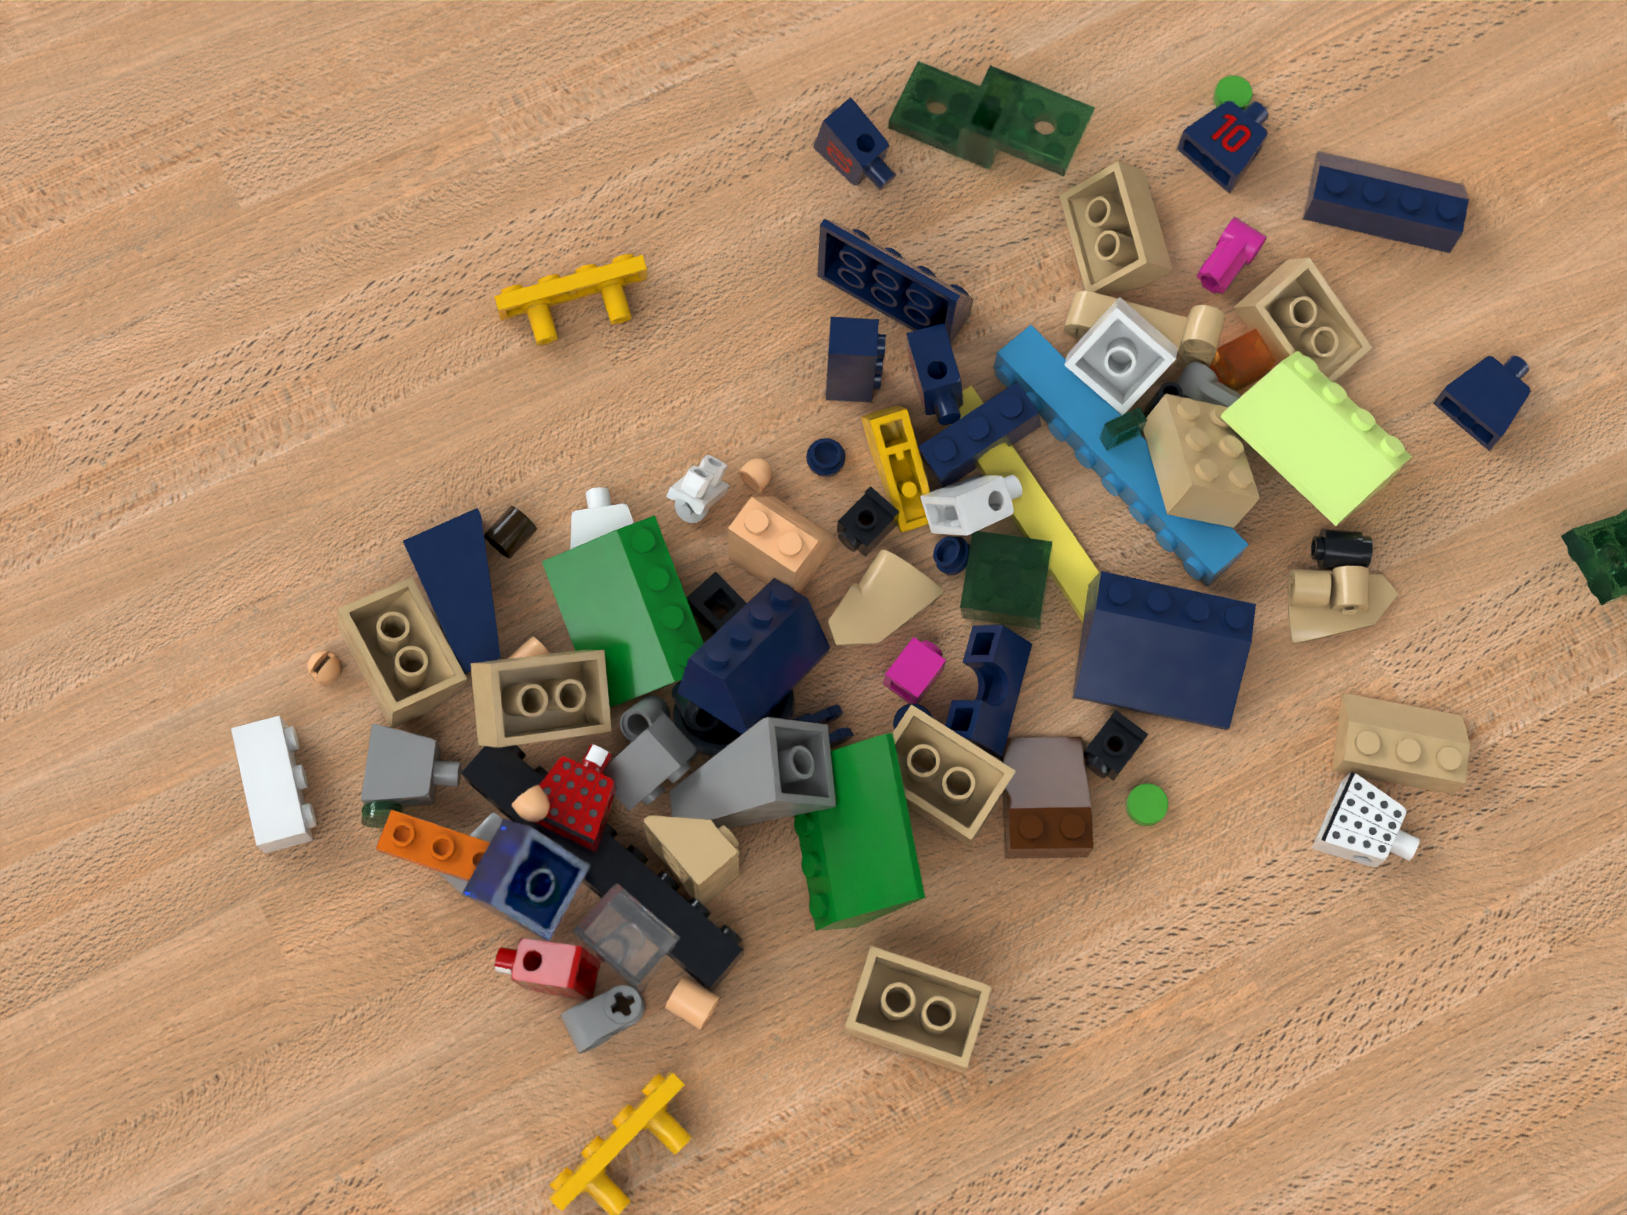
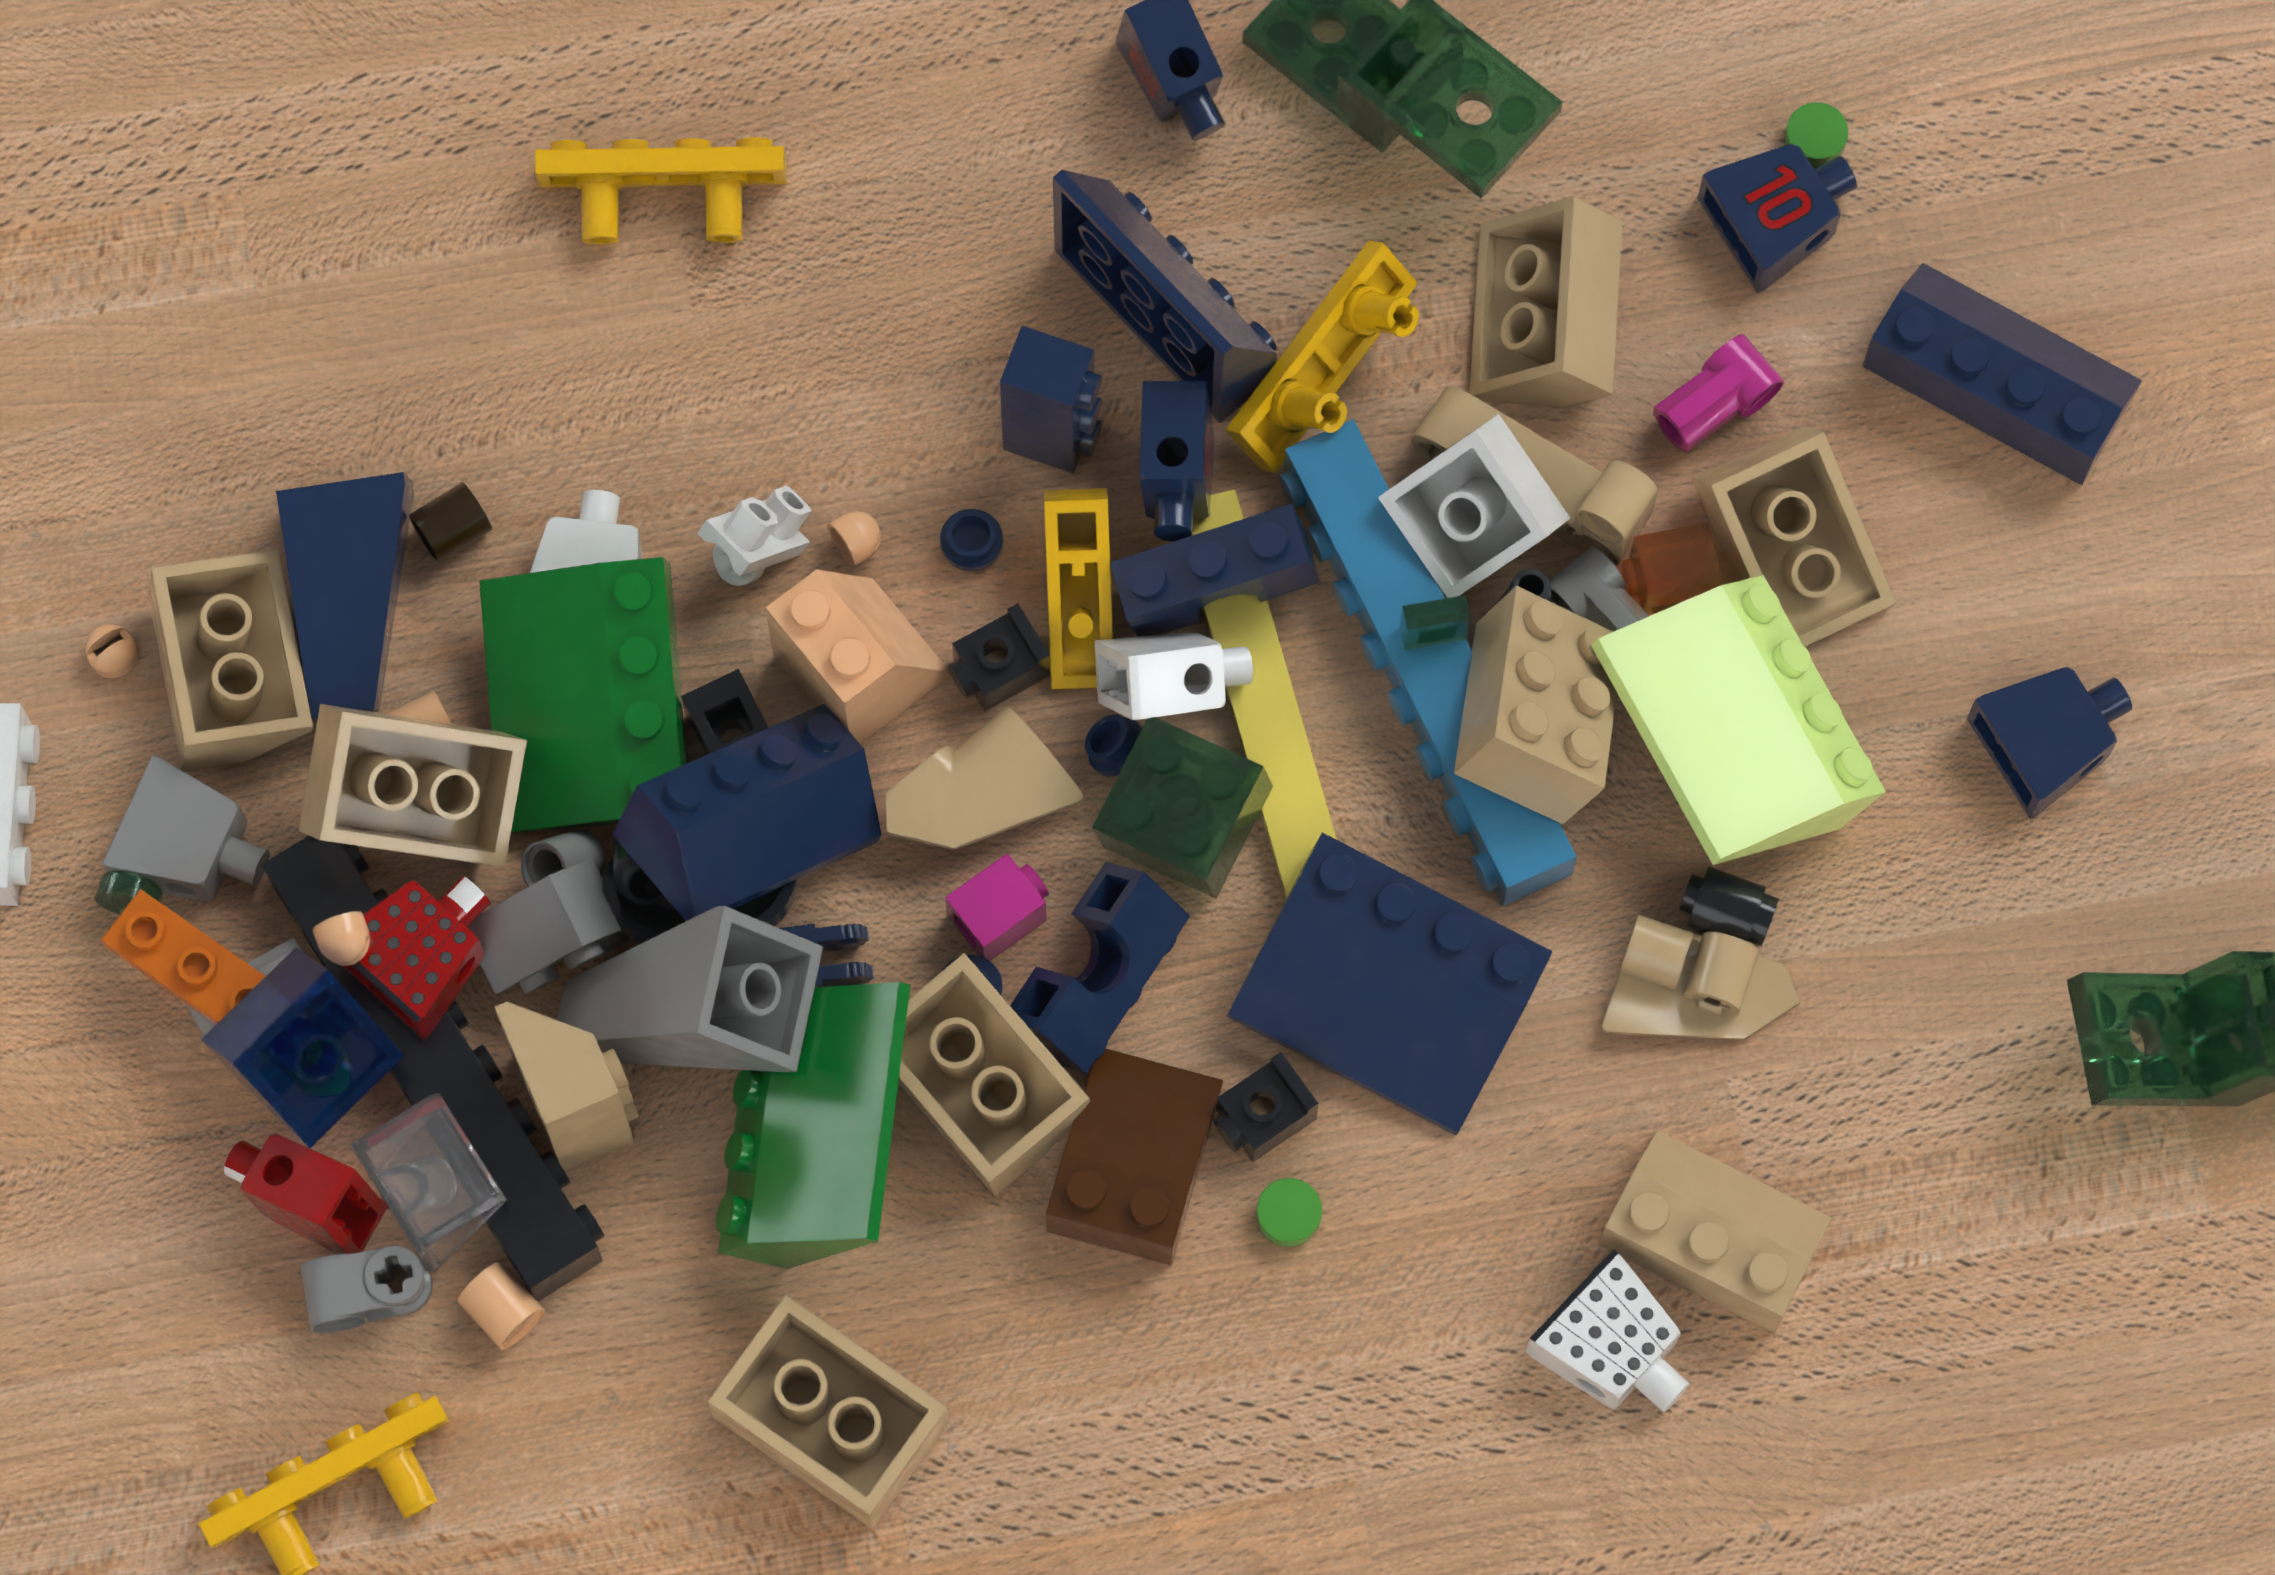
camera: 20 degrees right, 0 degrees up
(992, 307) = (1304, 380): none -> yellow plate

